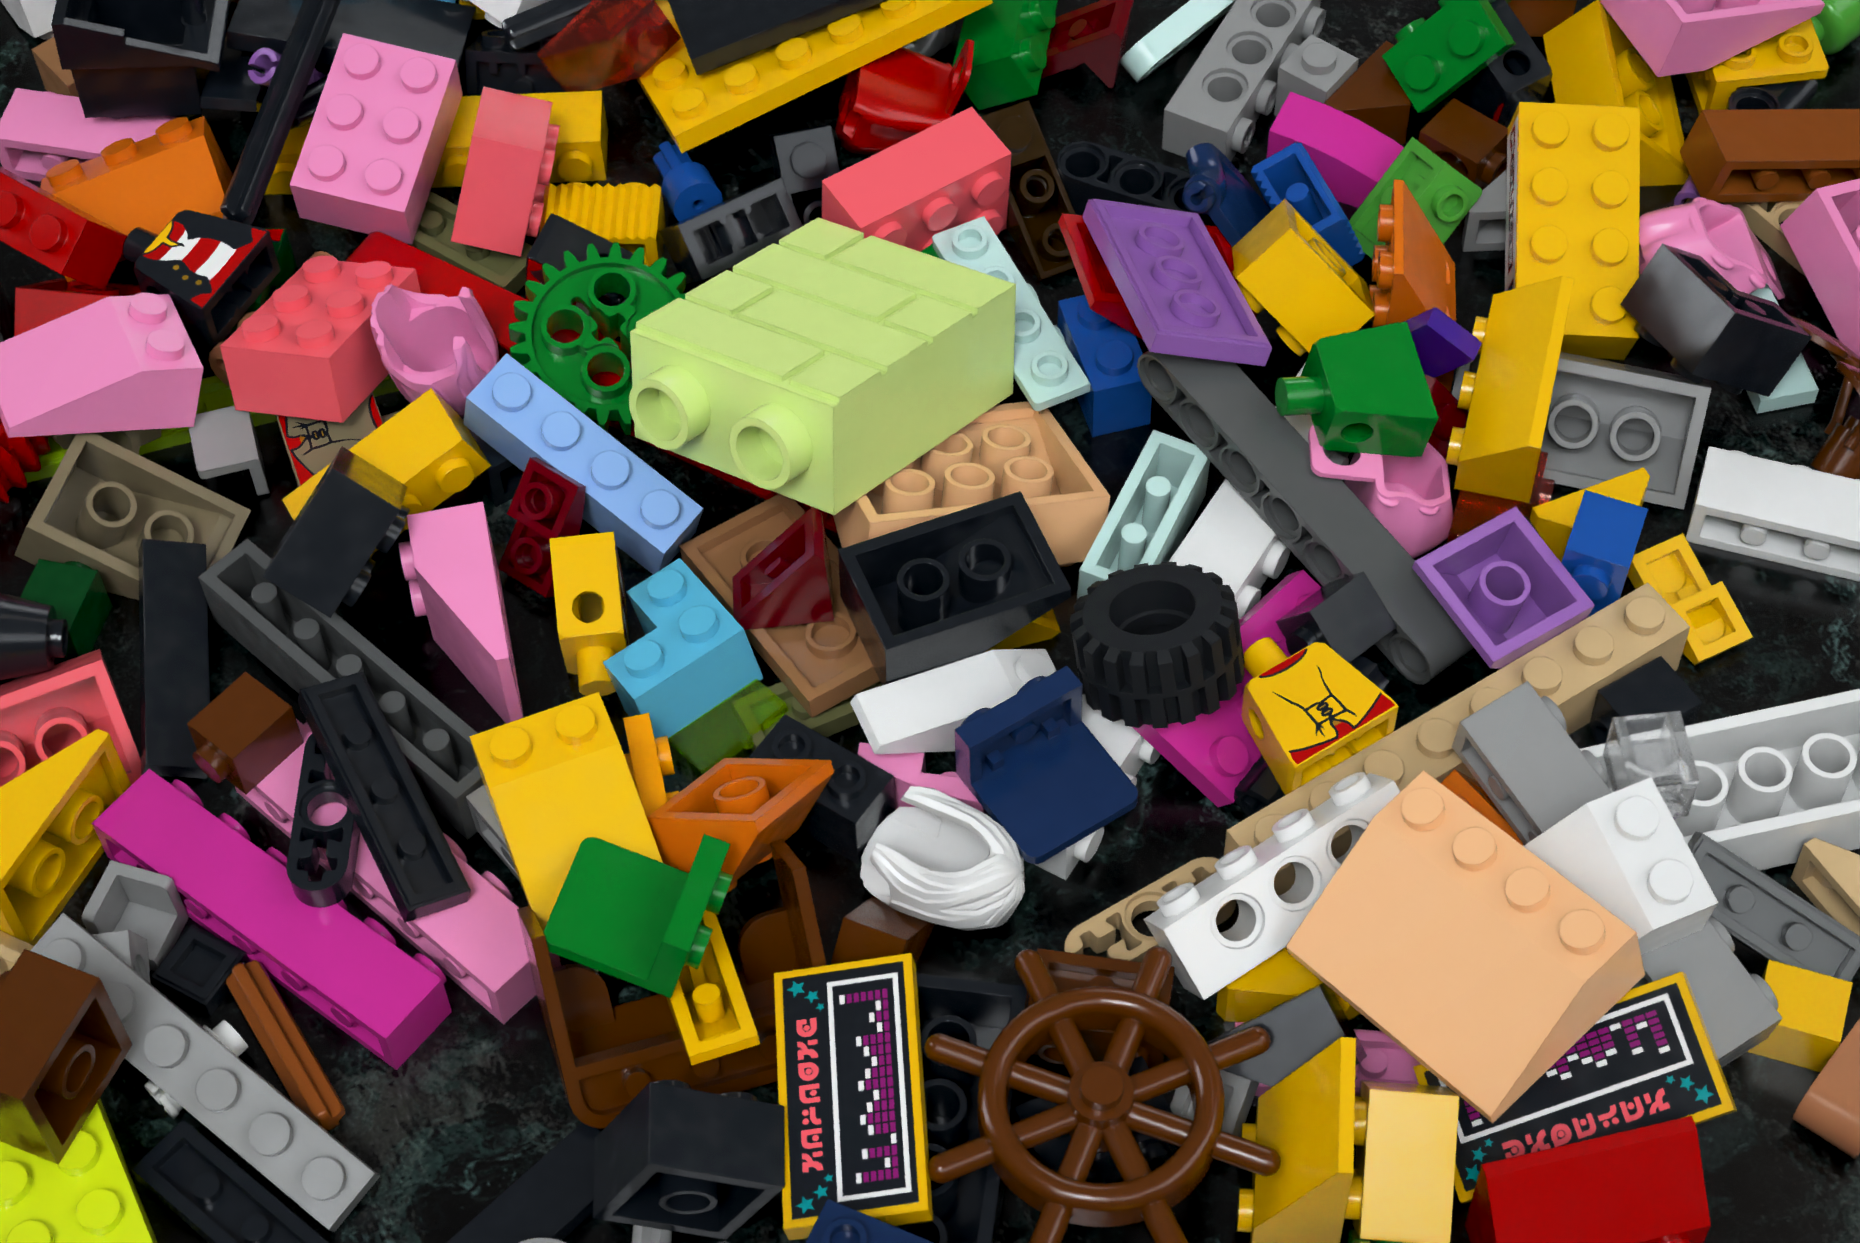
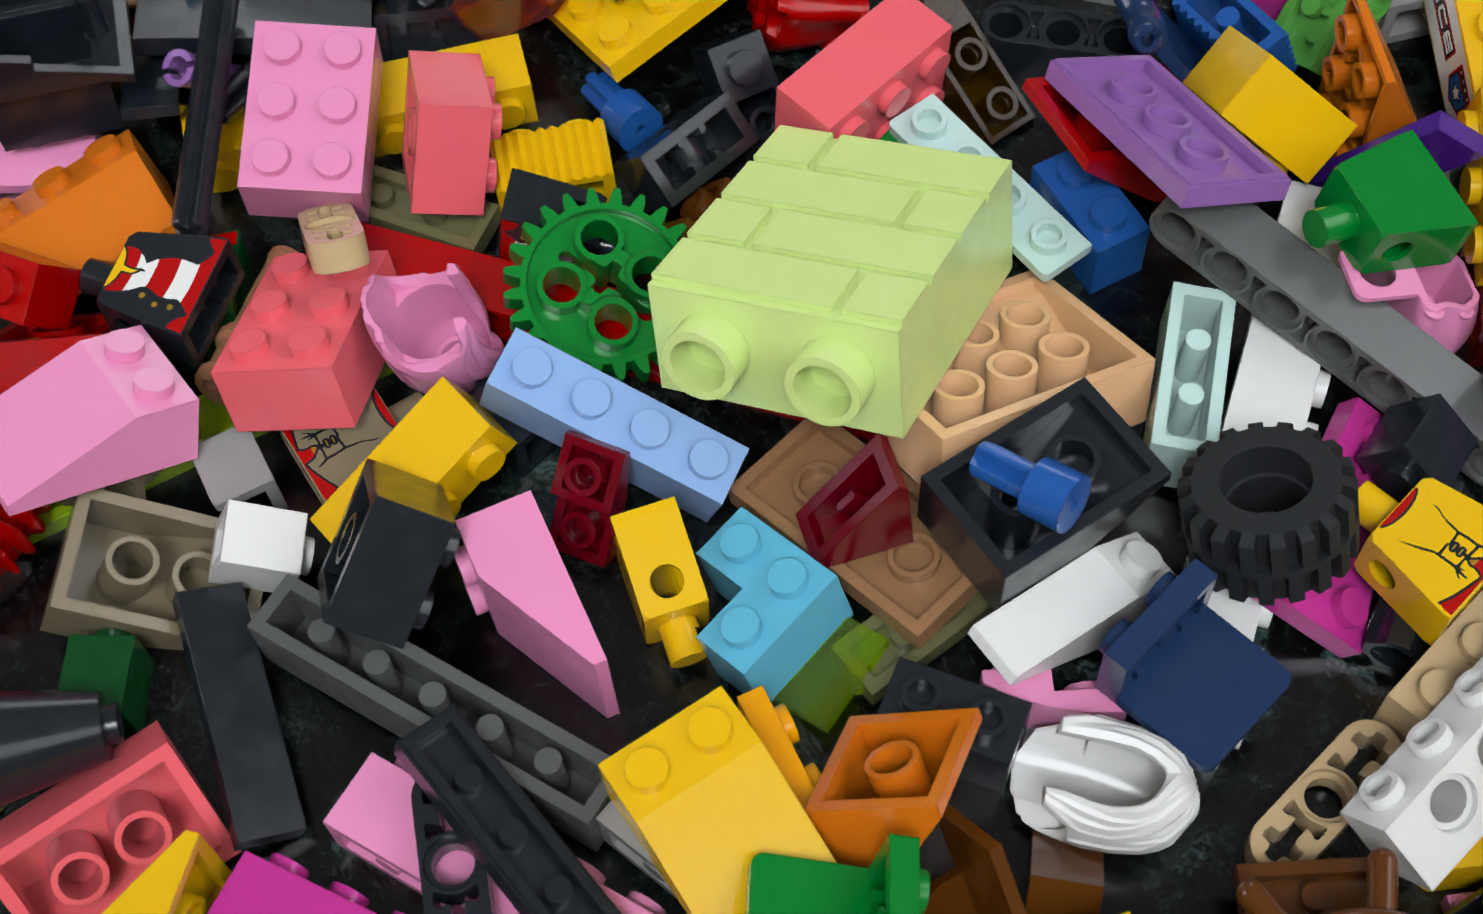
camera: 10 degrees left, 5 degrees up
(229, 512) = (259, 546): none -> white brick
(244, 734) = (341, 797): reddish brown brick -> none
(364, 247) = (333, 238): none -> tan beam
(936, 574) = (1045, 490): none -> blue piece

